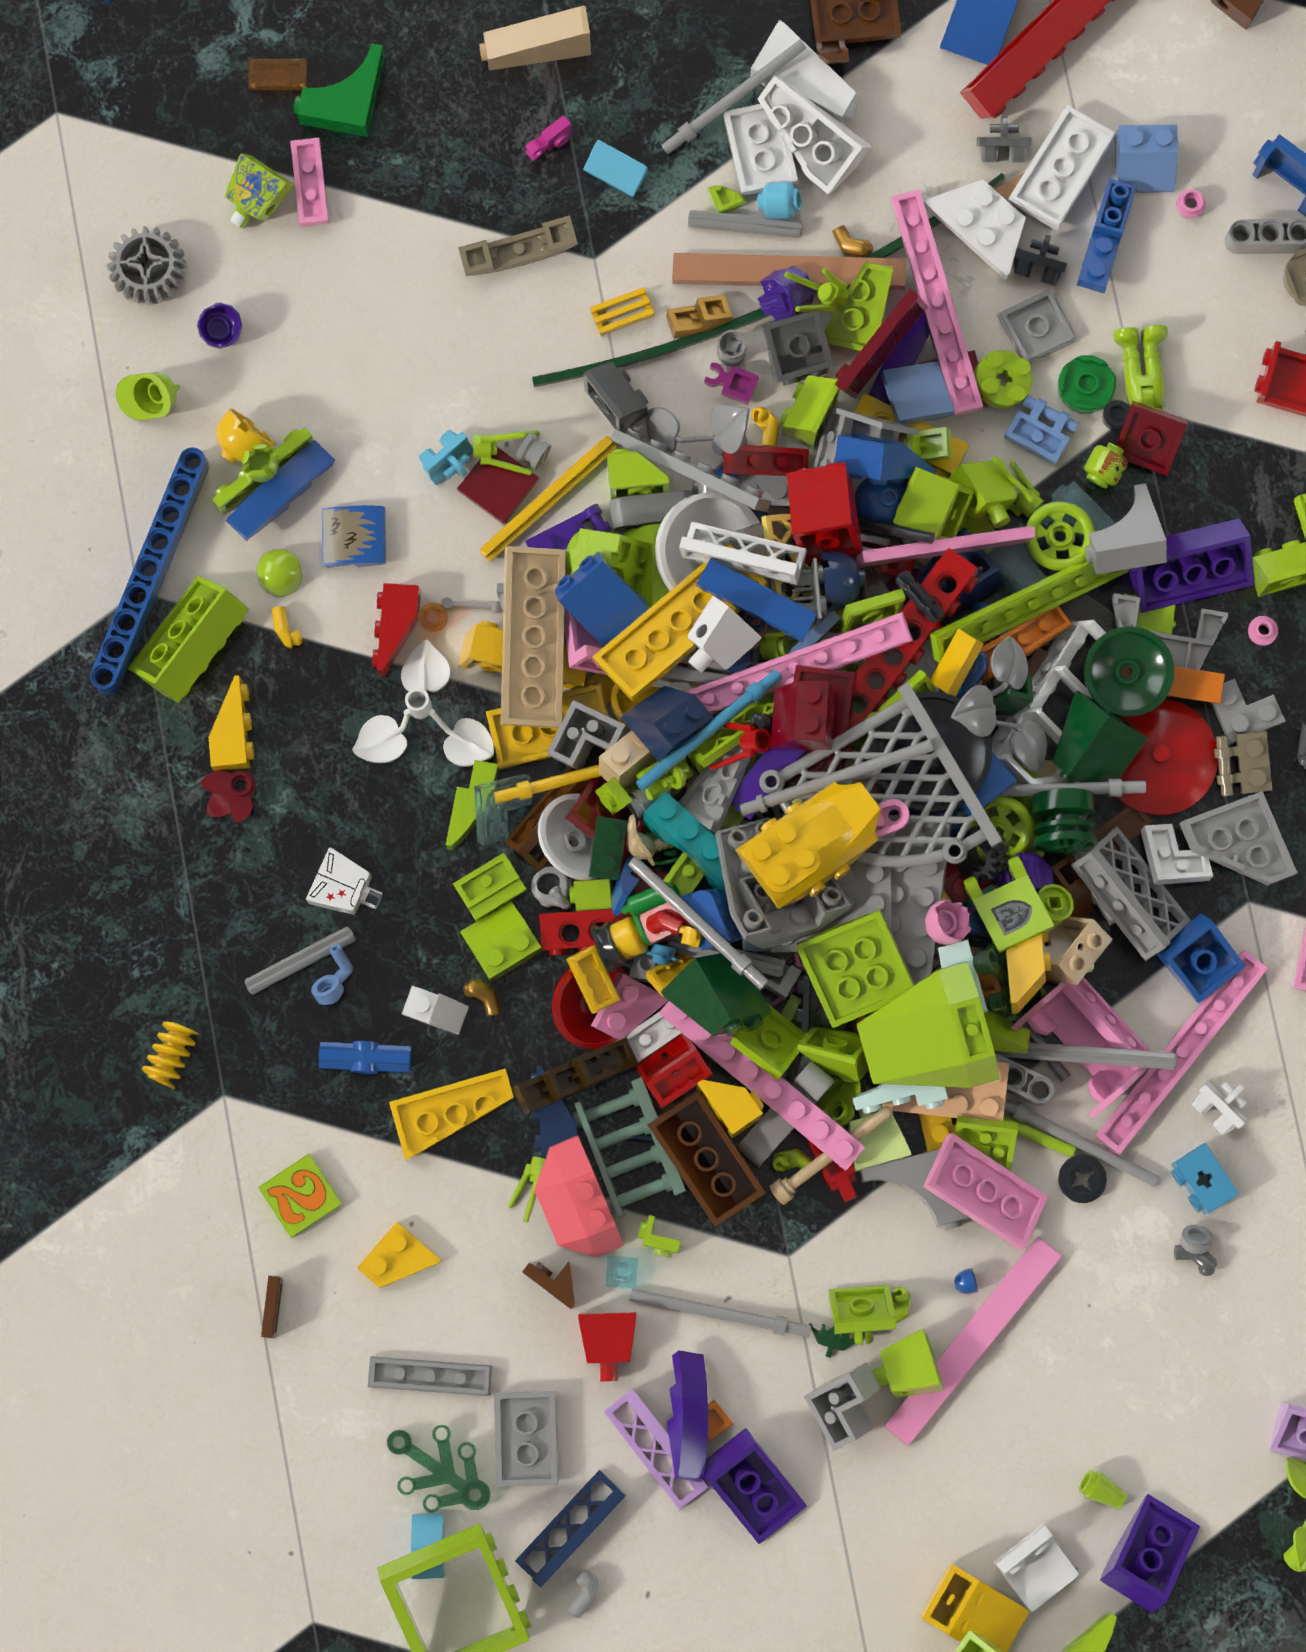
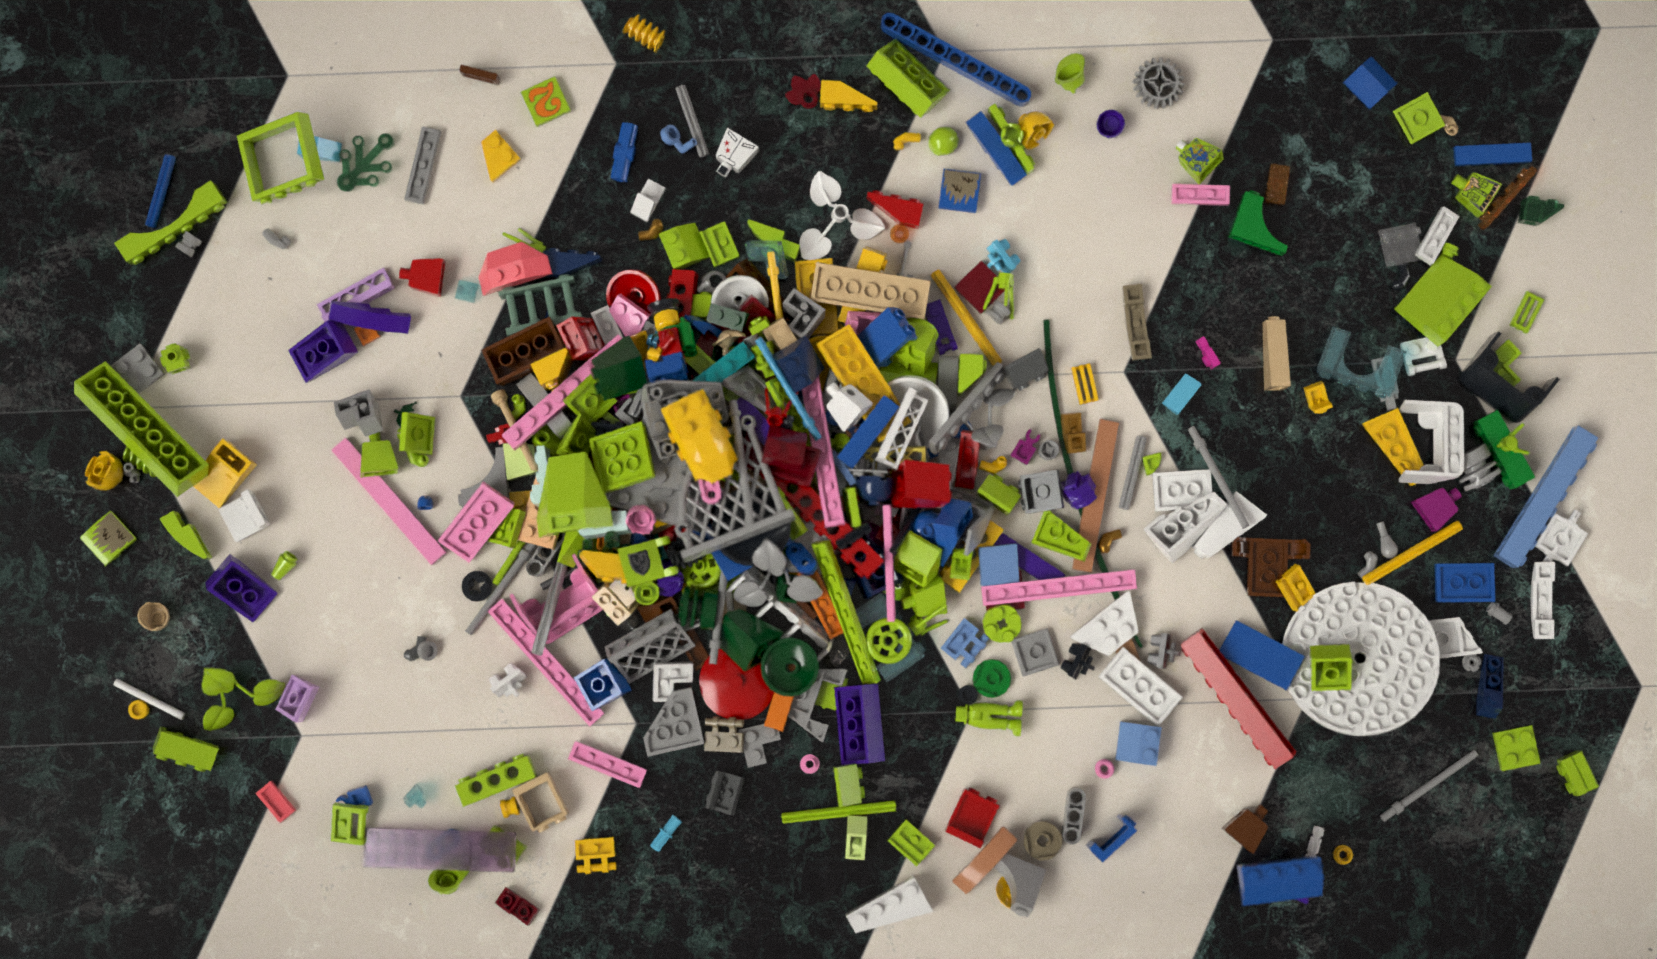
camera: 100 degrees right, 5 degrees up
(440, 1112) = (583, 196): yellow wing -> none
(526, 1438) = (374, 217): light grey plate -> none
(560, 1288) = (461, 250): reddish brown slope -> none
(575, 1076) = (589, 278): dark brown slope -> none
(578, 1537) = (308, 238): dark blue fence -> none
(593, 979) = (644, 296): yellow plate -> none
(662, 1245) = (477, 318): lime bracket -> none
(740, 963) = (630, 382): light grey bar -> none
(779, 200) = (1144, 497): medium azure head -> none
(779, 1325) = (418, 382): light grey bar -> none
(832, 294) = (1072, 517): lime plant -> none
(855, 376) = (1027, 540): dark red plate -> none
(956, 662) = (808, 553): yellow tile -> none
(1106, 235) = (1089, 707): blue slope -> none
(1106, 465) = (933, 680): lime head -> none
(1130, 542) = (876, 685): light grey arch -> none
(1151, 437) = (947, 711): dark red plate -> none
(1219, 1186) = (474, 661): dark azure brick -> none

